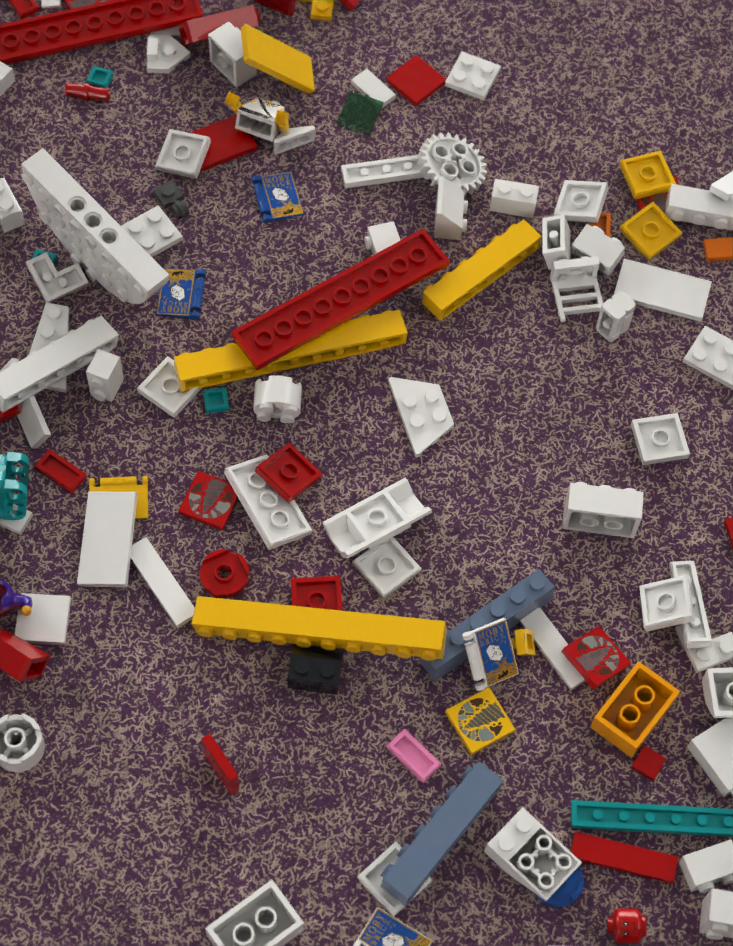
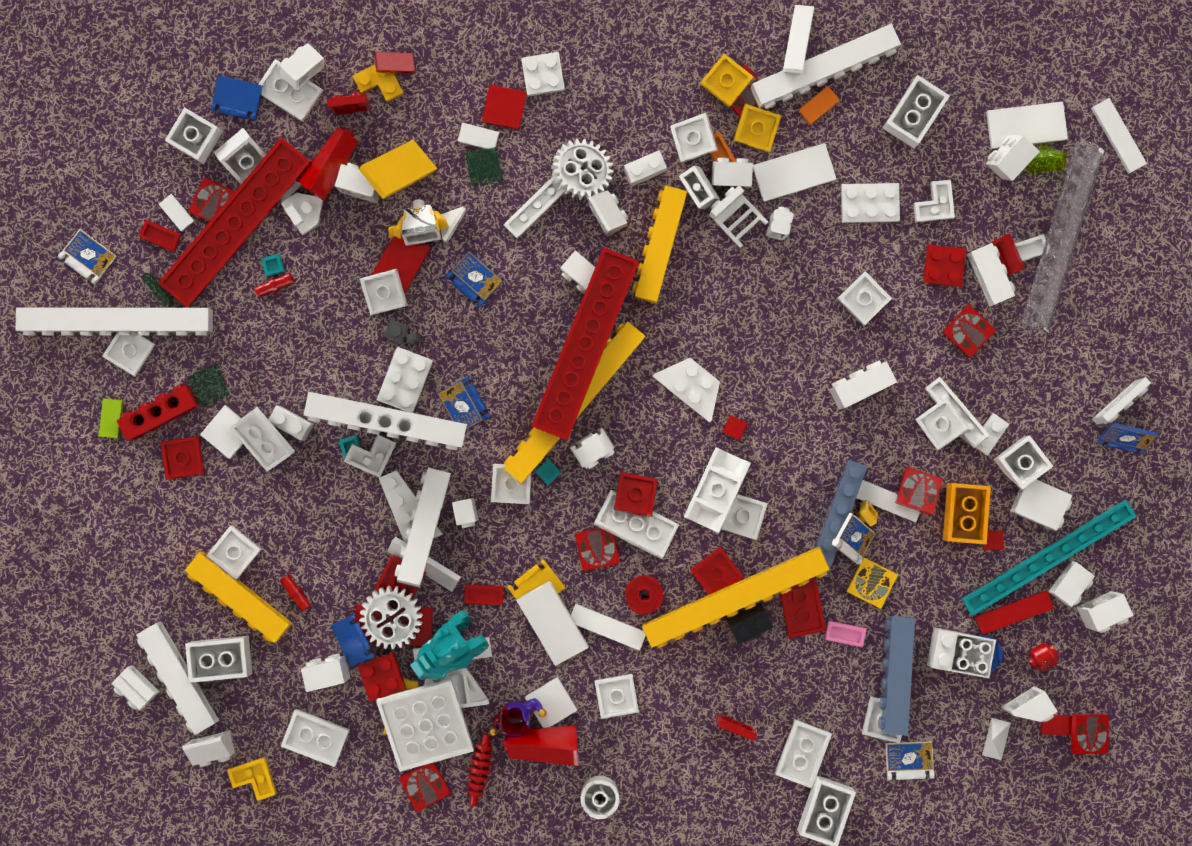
camera: 30 degrees left, 25 degrees up
(116, 657) = (616, 696): none -> white tile
(275, 850) = (803, 753): none -> white plate
(385, 695) = (803, 610): none -> red tile
(438, 476) = (734, 427): none -> red tile

